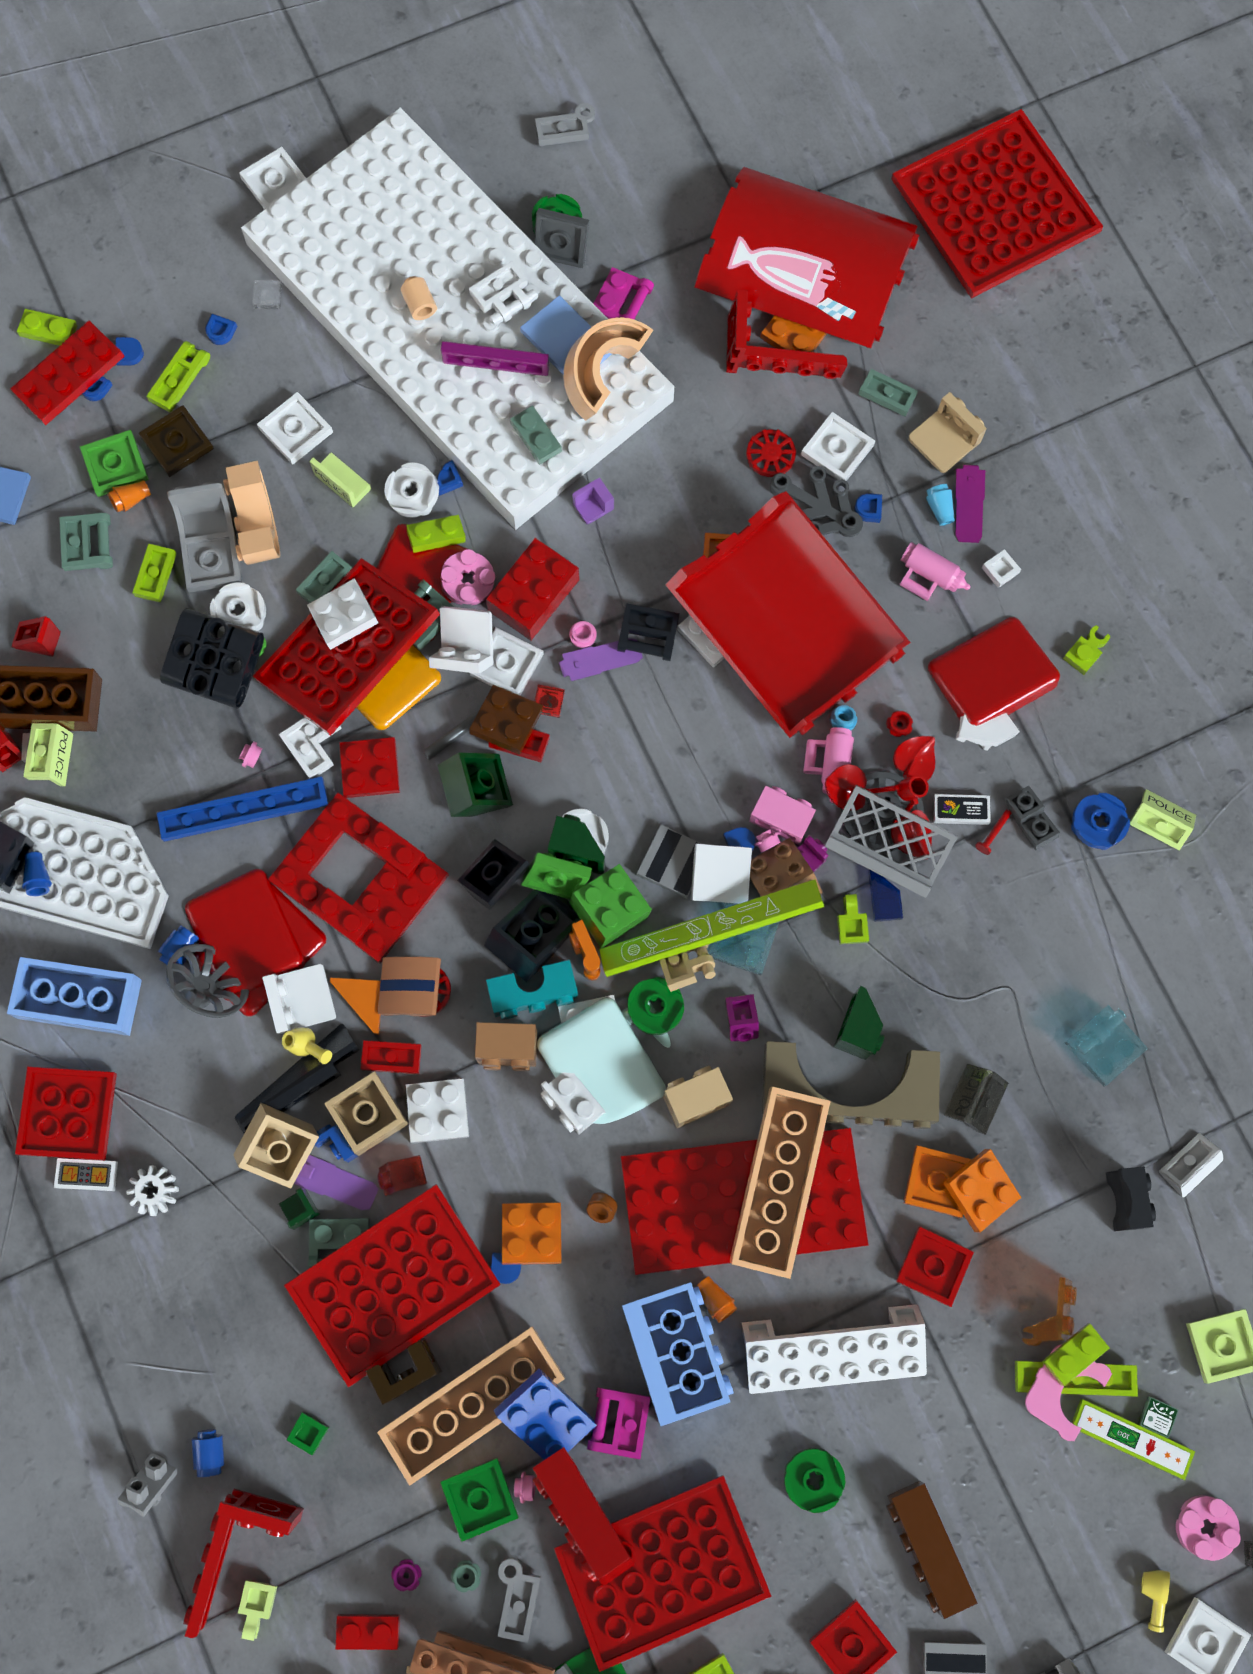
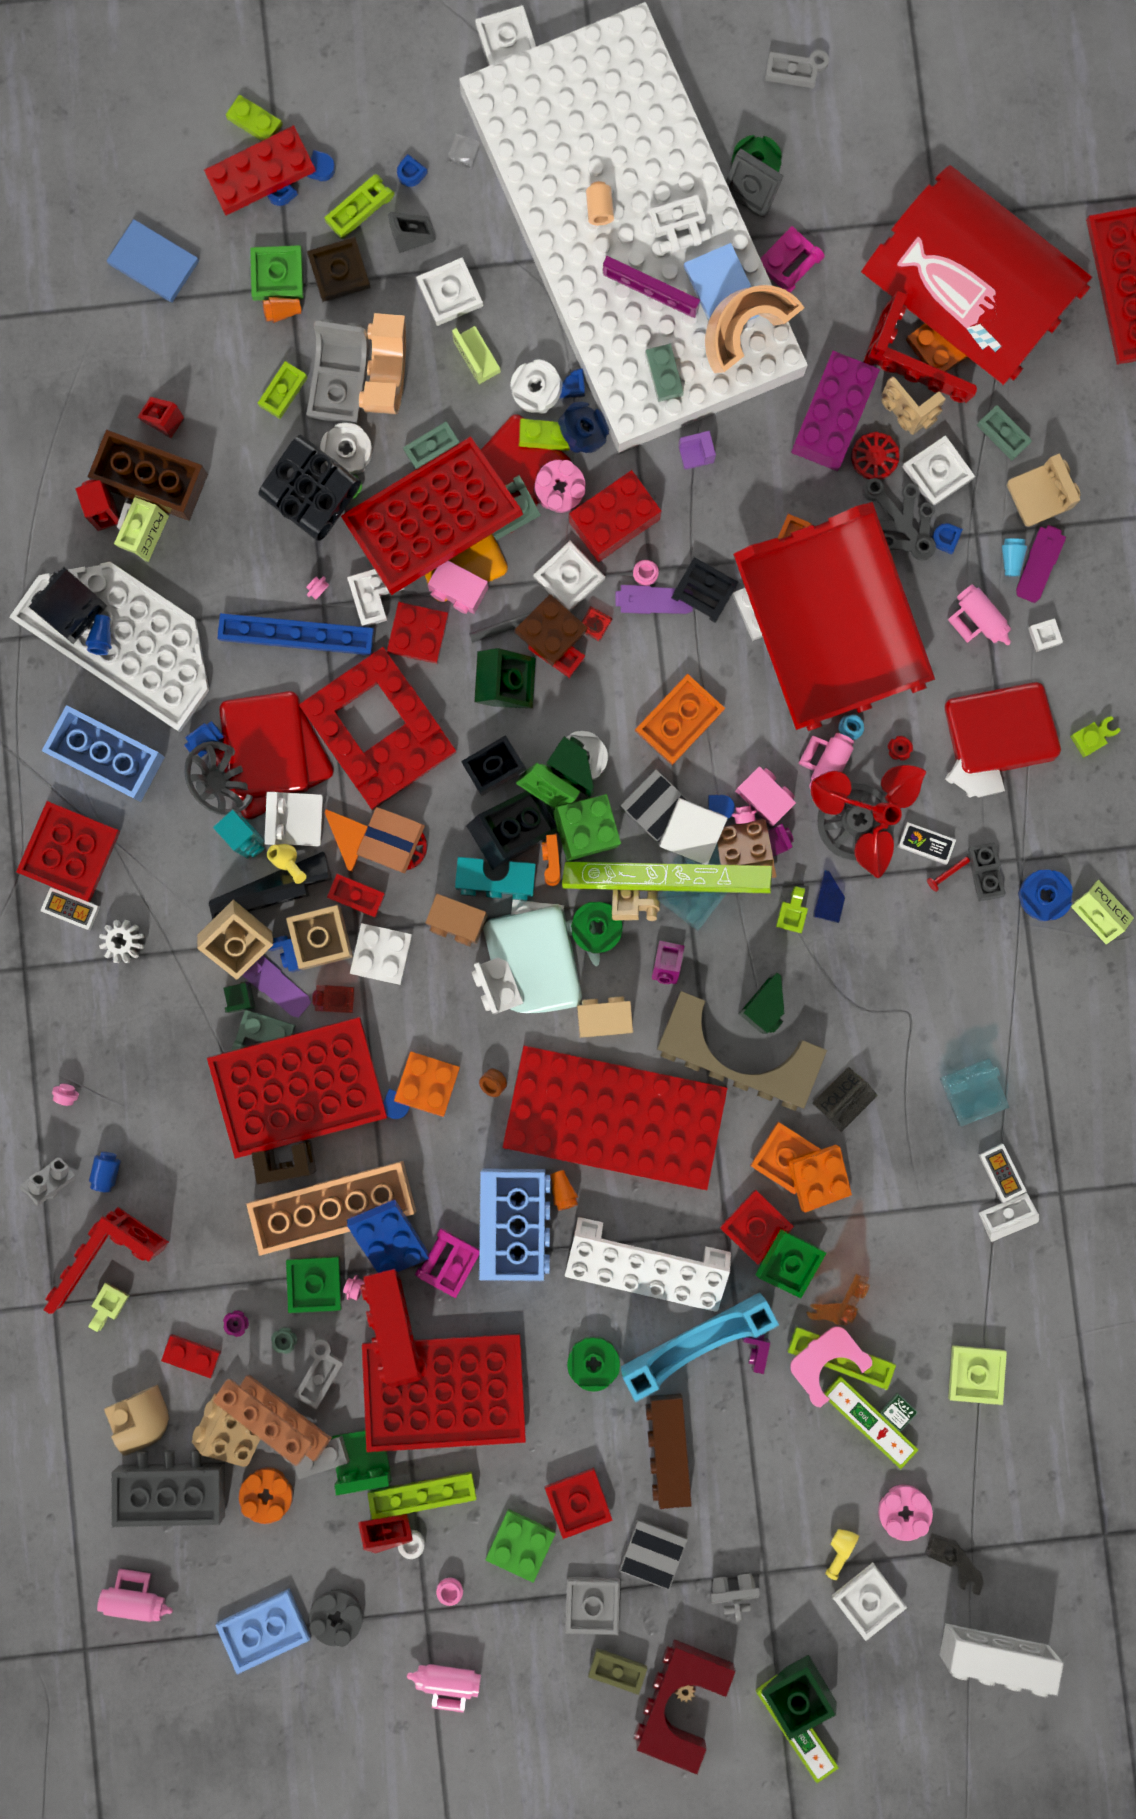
camera: 20 degrees right, 10 degrees up
(77, 543) = (222, 337): sand green plate -> none
(138, 1381) = (65, 1094): none -> bright pink plate
(236, 383) = (410, 230): none -> dark grey slope
(248, 1031) = (240, 835): none -> teal arch
(307, 1433) = (190, 1183): green tile -> none
(342, 614) = (436, 485): white plate -> none
(396, 708) = (458, 587): none -> bright pink brick
(464, 640) = (537, 546): white bracket -> none
(472, 526) = (575, 436): none -> dark blue plate
(667, 767) = (679, 719): none -> orange plate
(716, 422) = (835, 411): none -> magenta brick
(779, 1182) = (648, 1114): light nougat brick -> none
(787, 399) = (909, 414): none -> tan bracket
(880, 863) = (836, 868): light grey fence -> none
(961, 1369) = (744, 1319): none -> medium azure arch
(985, 1293) = (790, 1263): none -> green plate
(988, 1406) = (758, 1355): none -> magenta bracket
(1075, 1354) = (847, 1339): lime plate -> none
(1132, 1198) = (943, 1235): black brick -> none
(1166, 1120) = (1002, 1172): none -> tile

